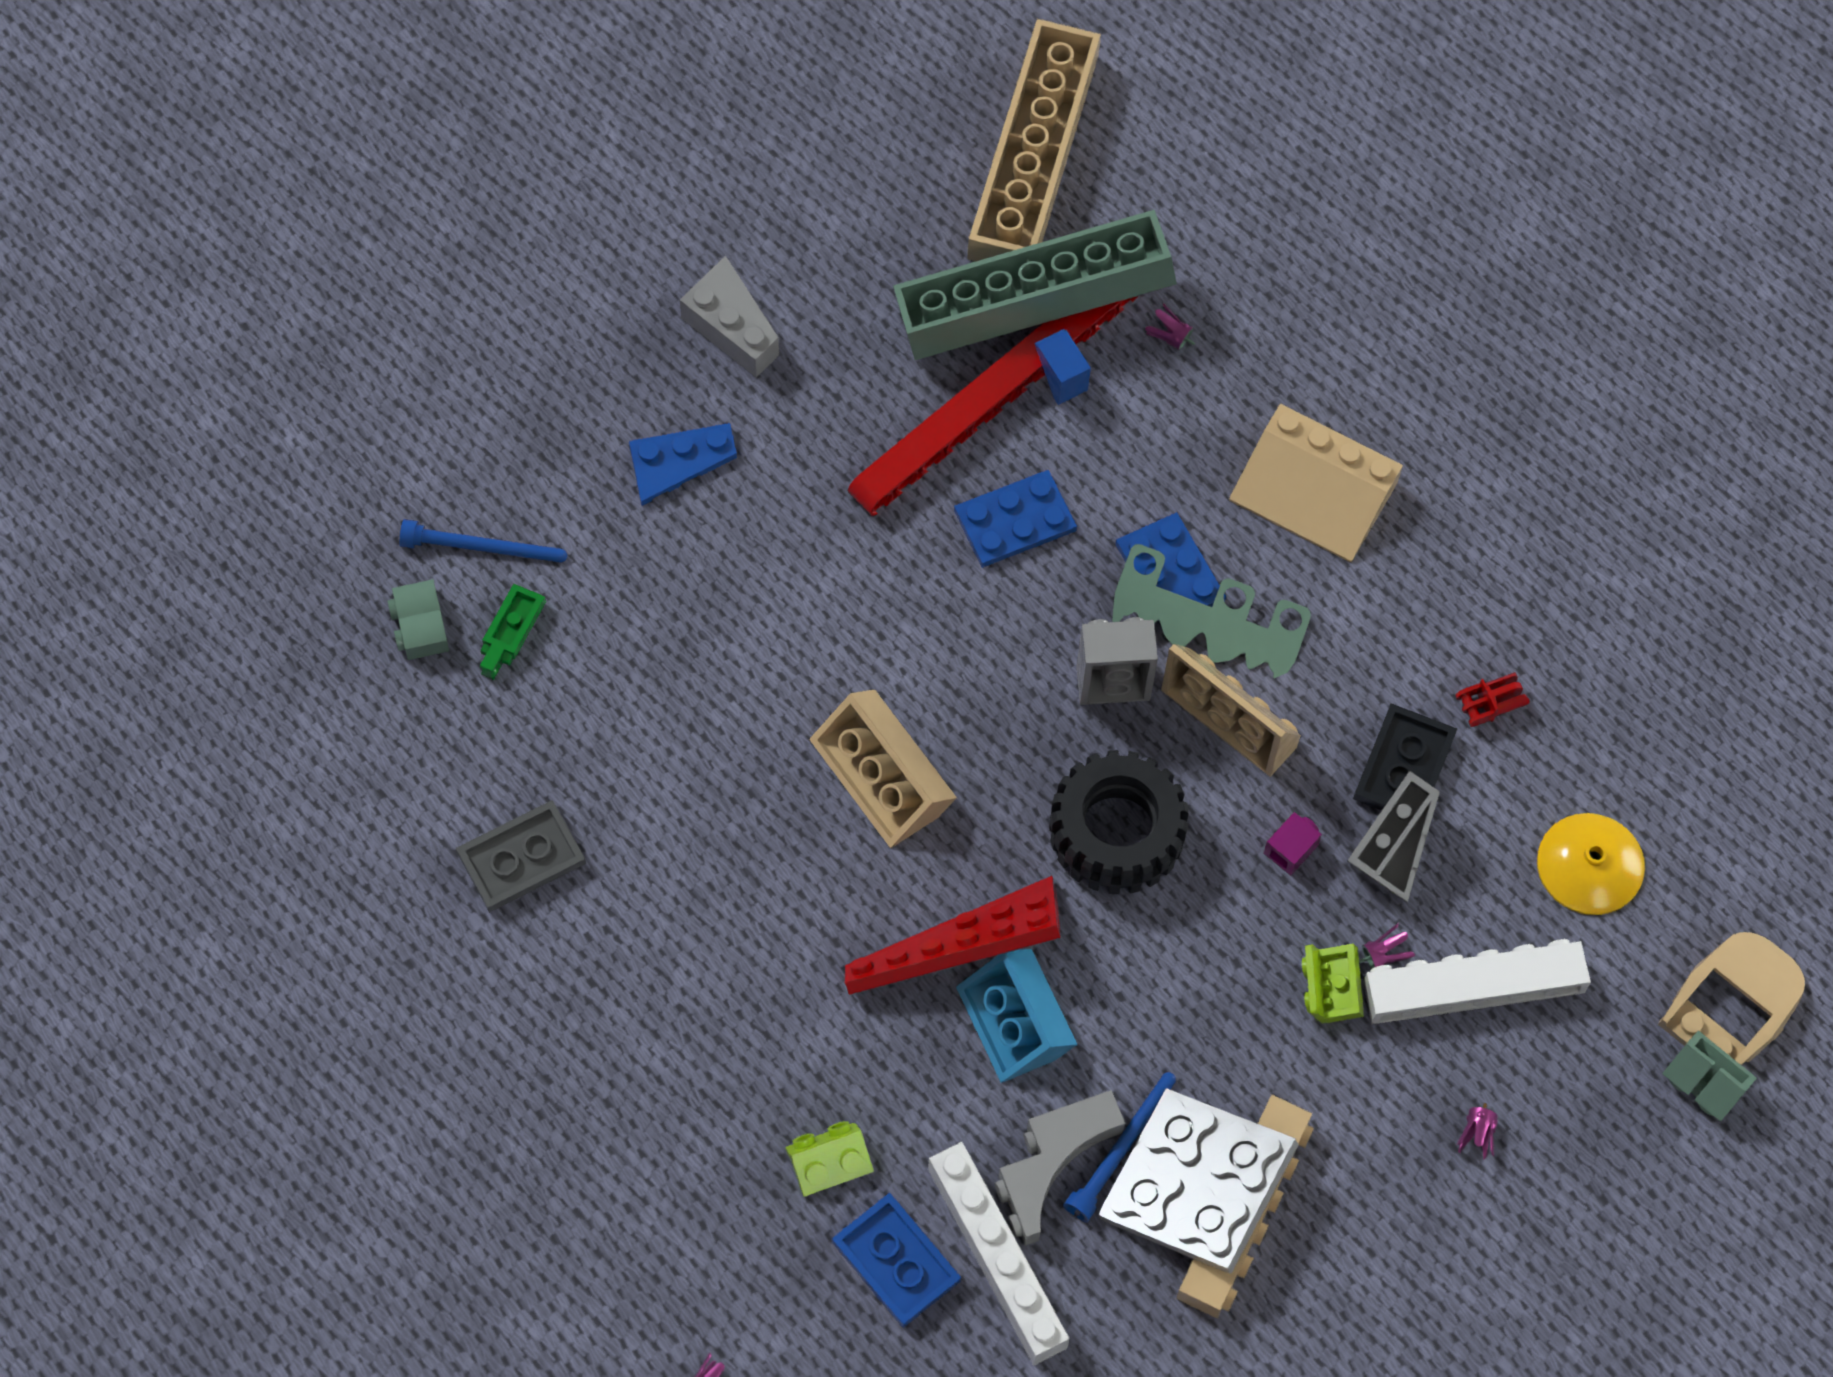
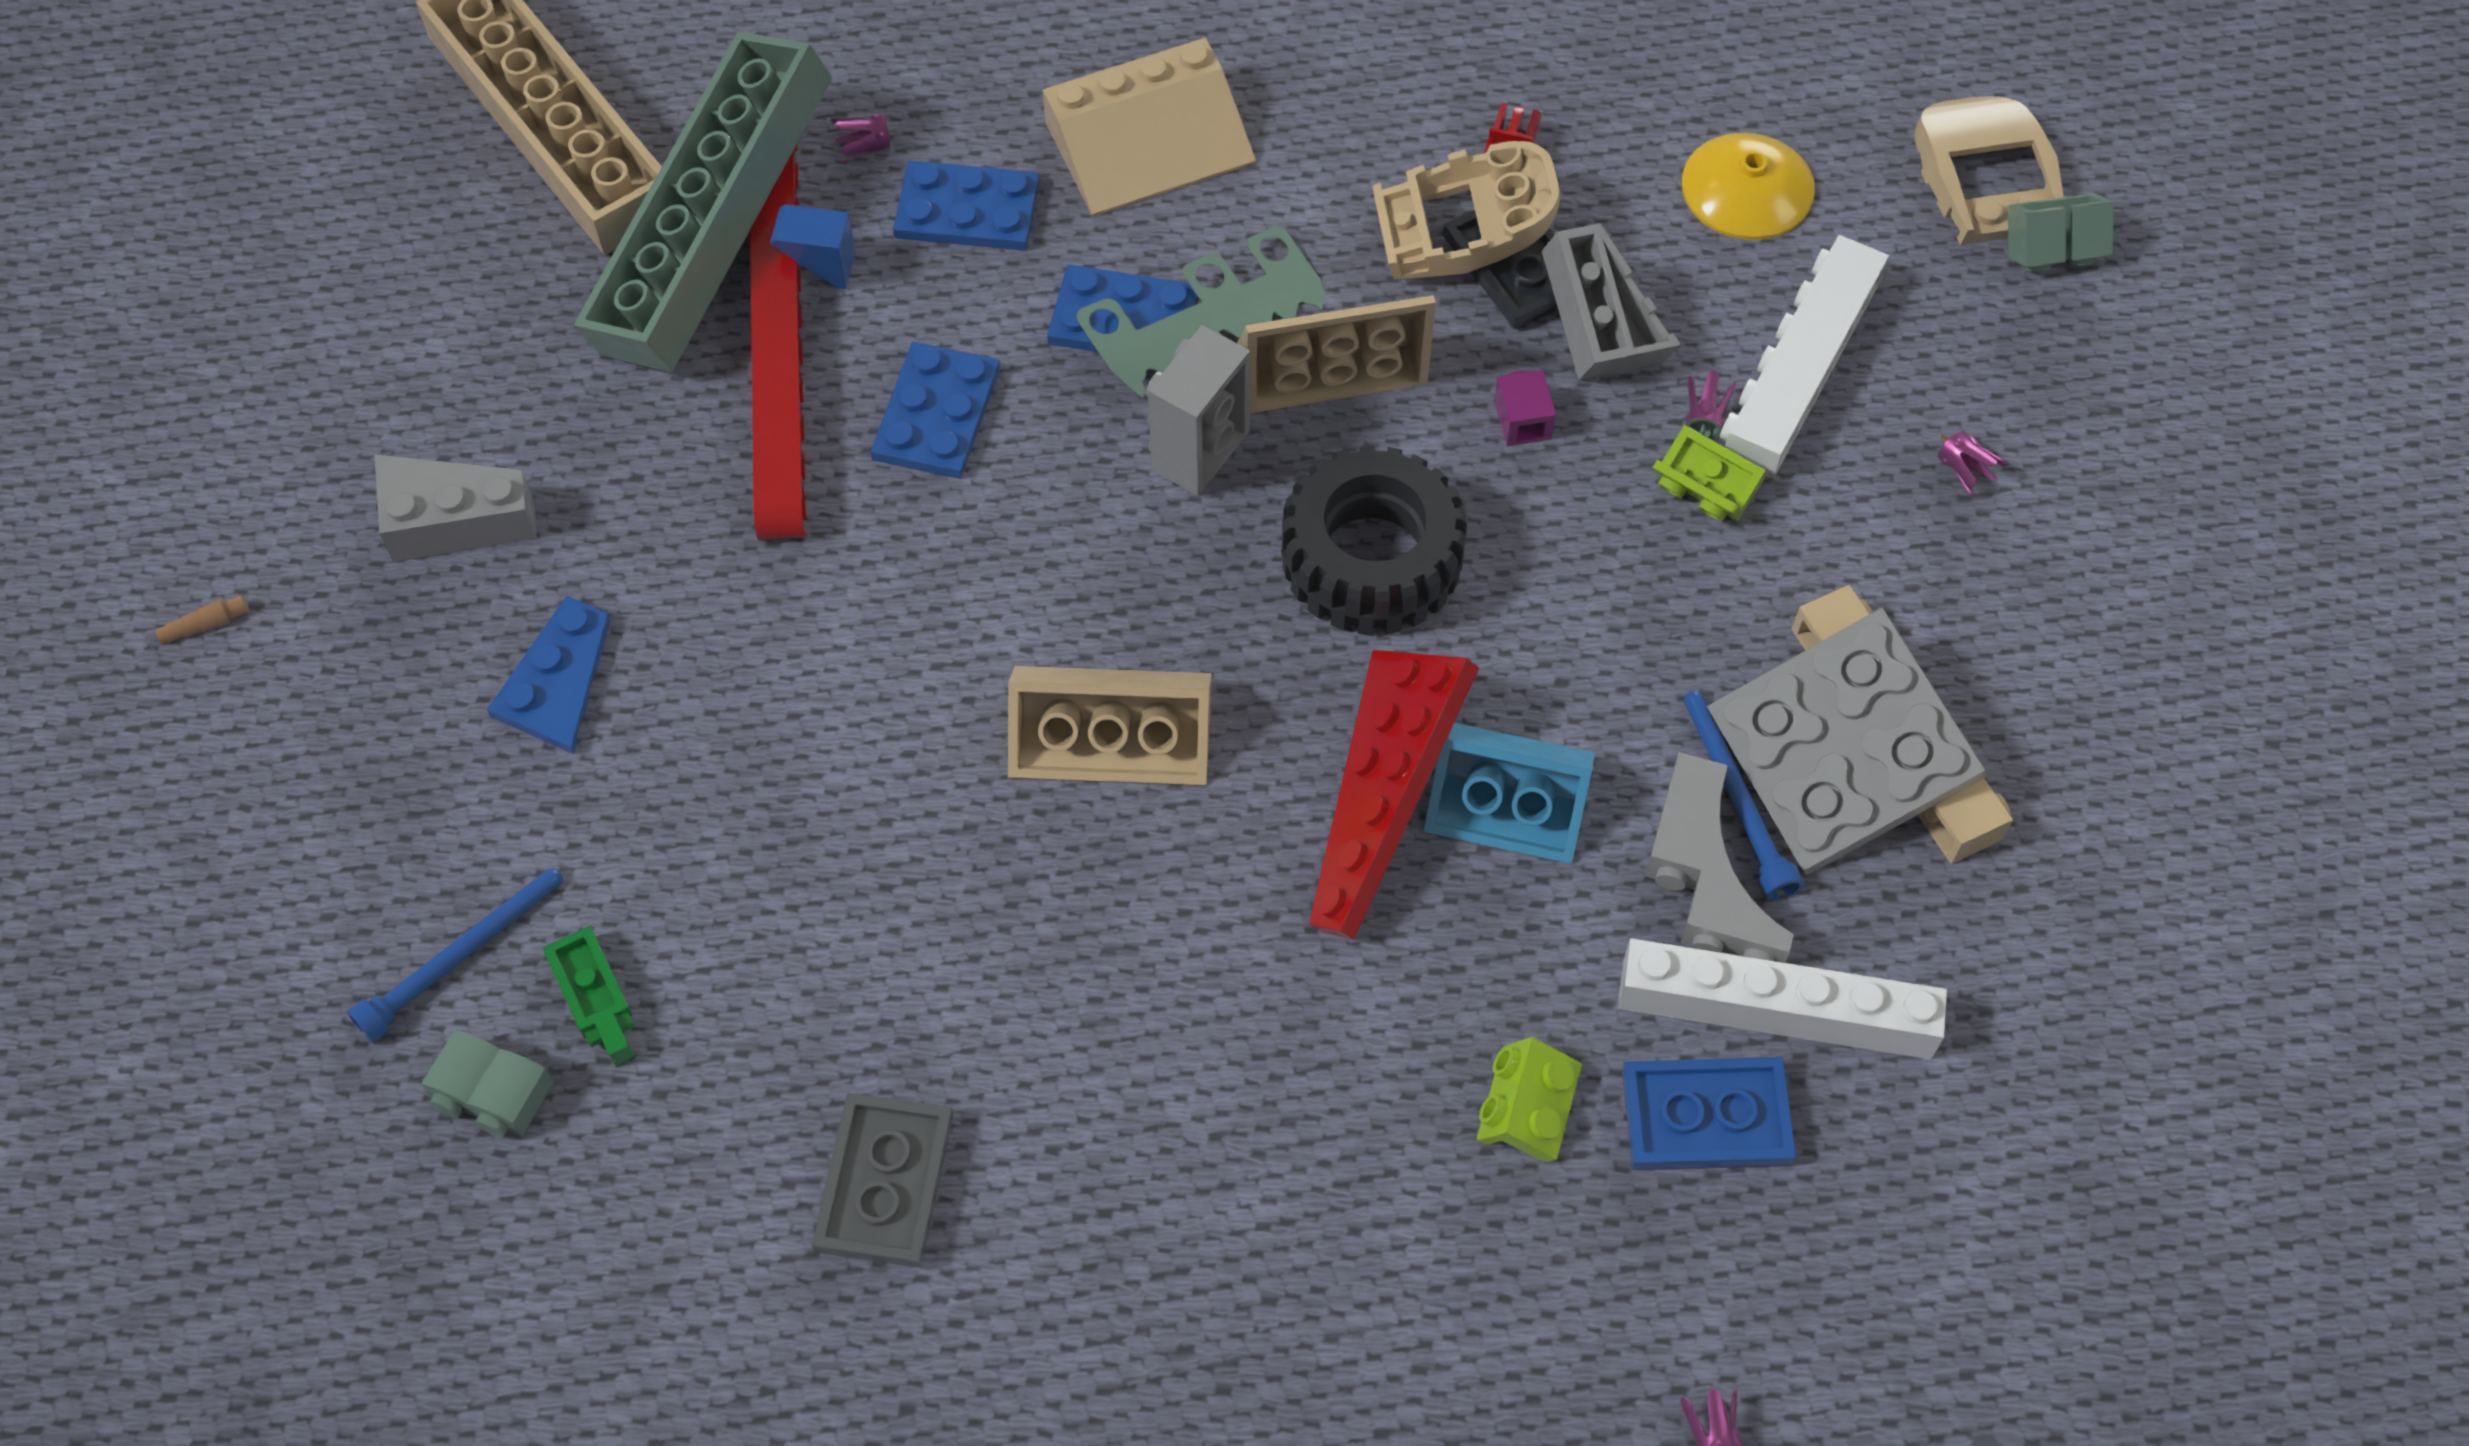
camera: 50 degrees left, 5 degrees down
(568, 256) = (202, 620): none -> medium nougat animal
(1173, 425) = (966, 205): none -> blue plate
(1430, 732) = (1512, 199): none -> tan slope

